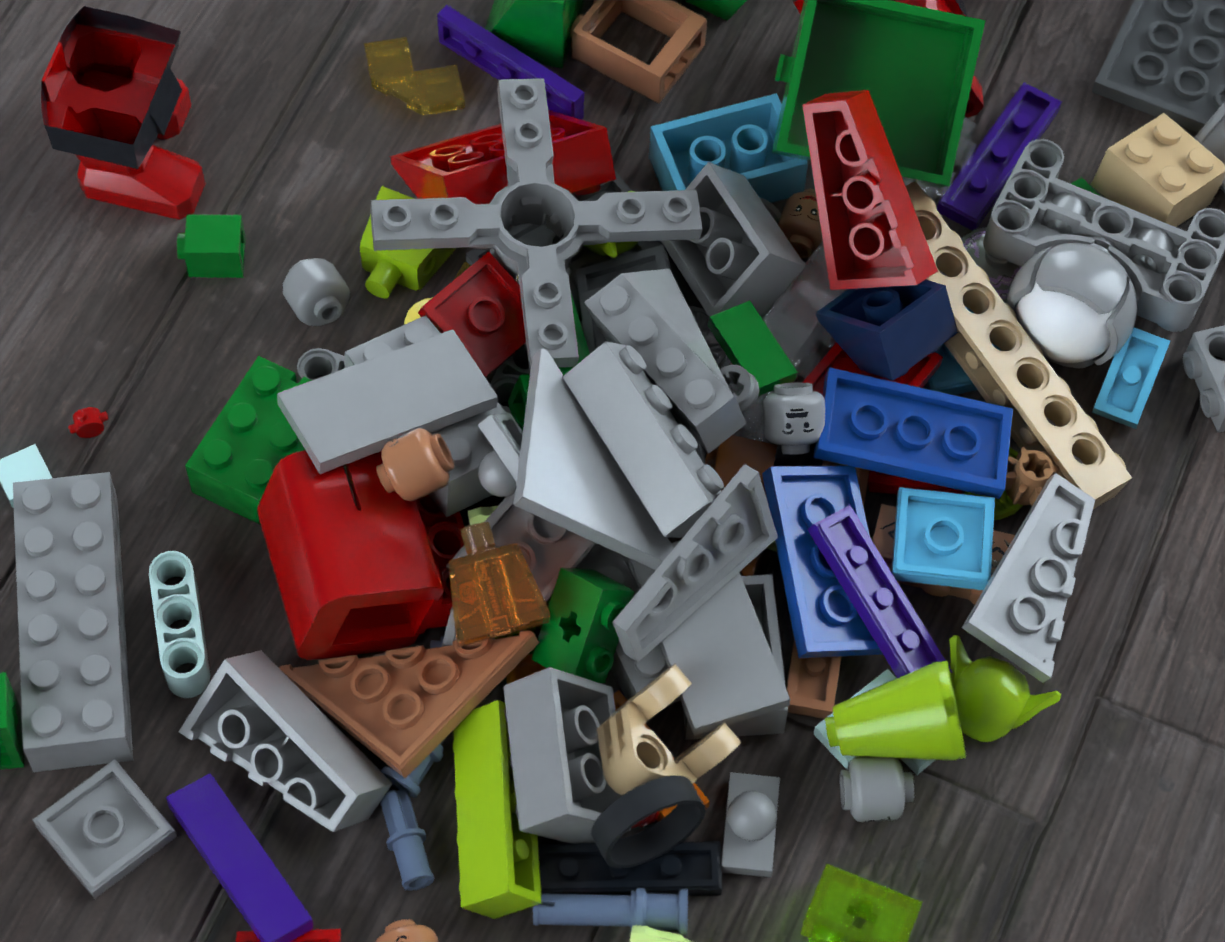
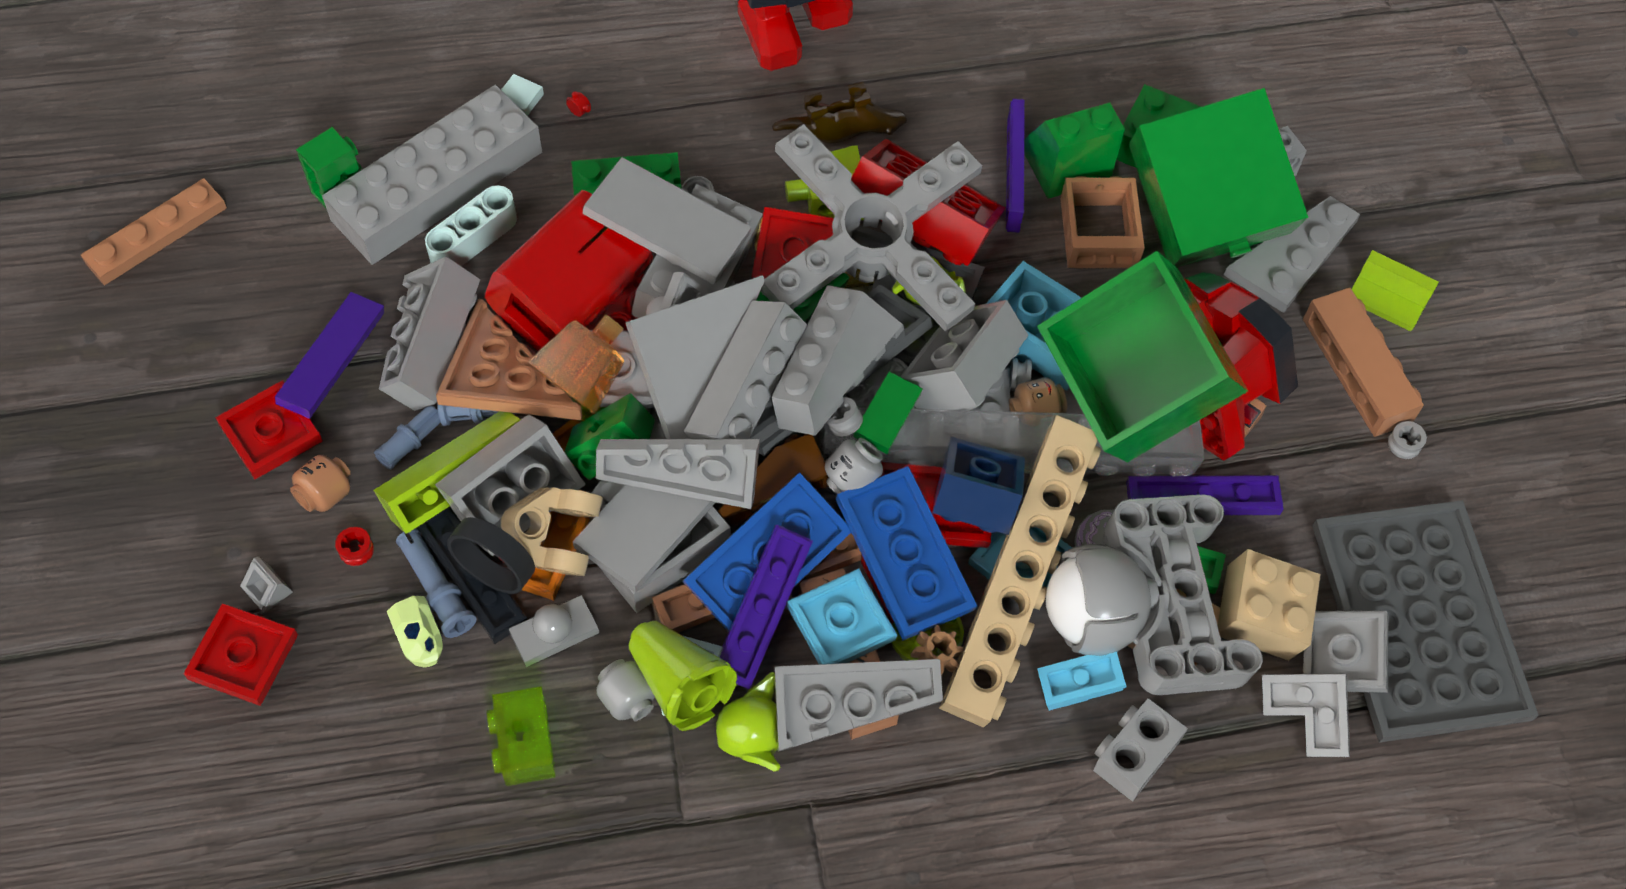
camera: 55 degrees right, 0 degrees up
(104, 828) = (314, 276): light grey tile -> none
(213, 246) = (748, 90): green brick -> none
(315, 289) = (757, 161): light grey head -> none
(328, 179) = (845, 117): none -> dark brown animal
(415, 464) = (629, 261): nougat head -> none
(422, 90) = (958, 110): clear yellow tile -> none
(862, 198) = (1039, 395): red wedge -> none

